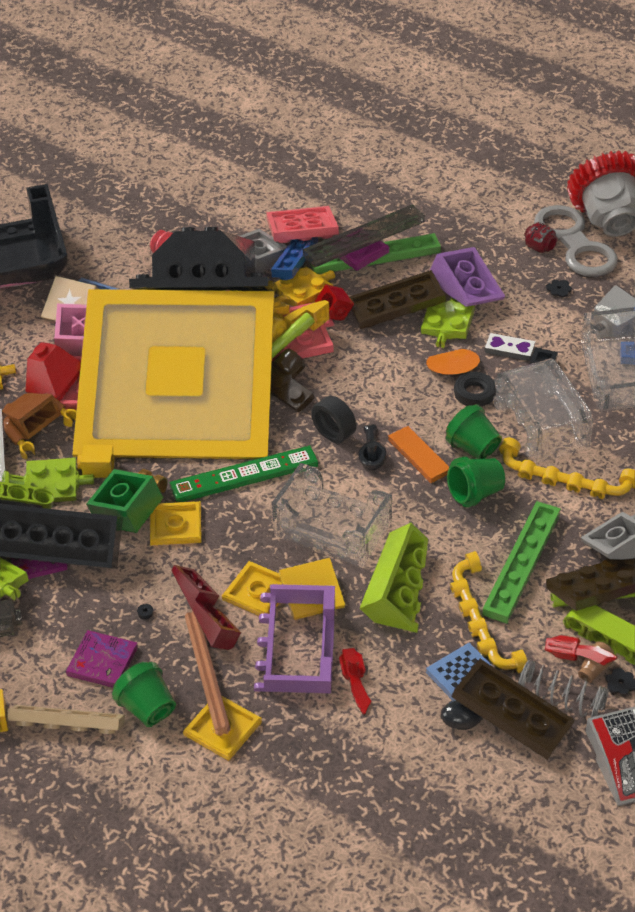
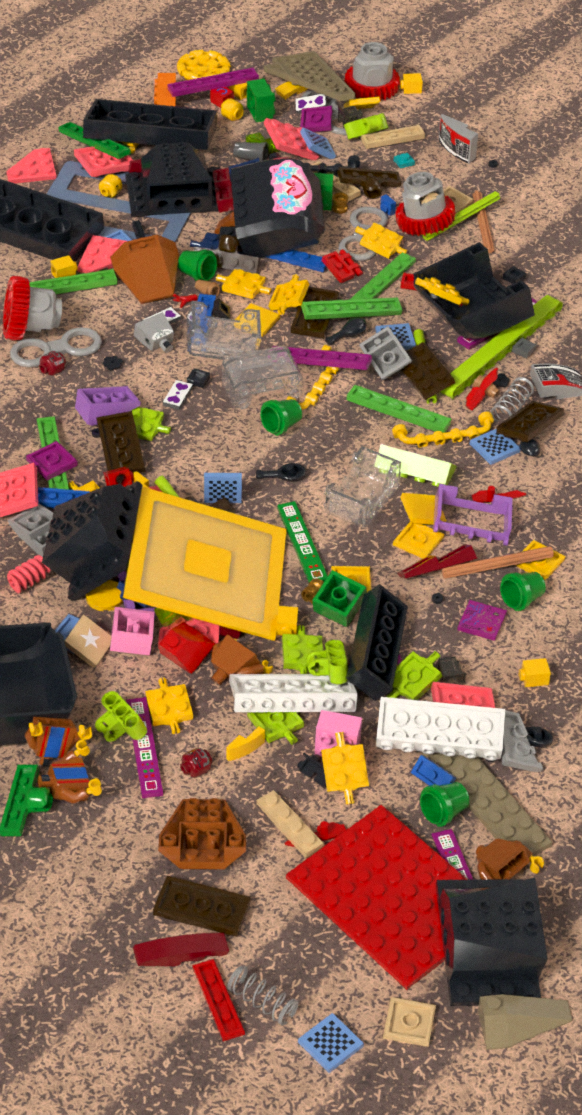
camera: 90 degrees left, 0 degrees up
(54, 717) = (538, 631): tan plate -> none
(319, 376) = (222, 485): none -> medium blue tile
(329, 409) = (252, 484): black tyre -> none
(363, 235) = (49, 449): clear smoke plate -> none
(419, 454) = (289, 450): orange tile -> none
(453, 362) = (192, 424): orange sticker -> none
(474, 479) = (329, 419): green piece -> none
(478, 379) = (223, 408): black tyre -> none
(606, 469) = (330, 358): none -> magenta tile

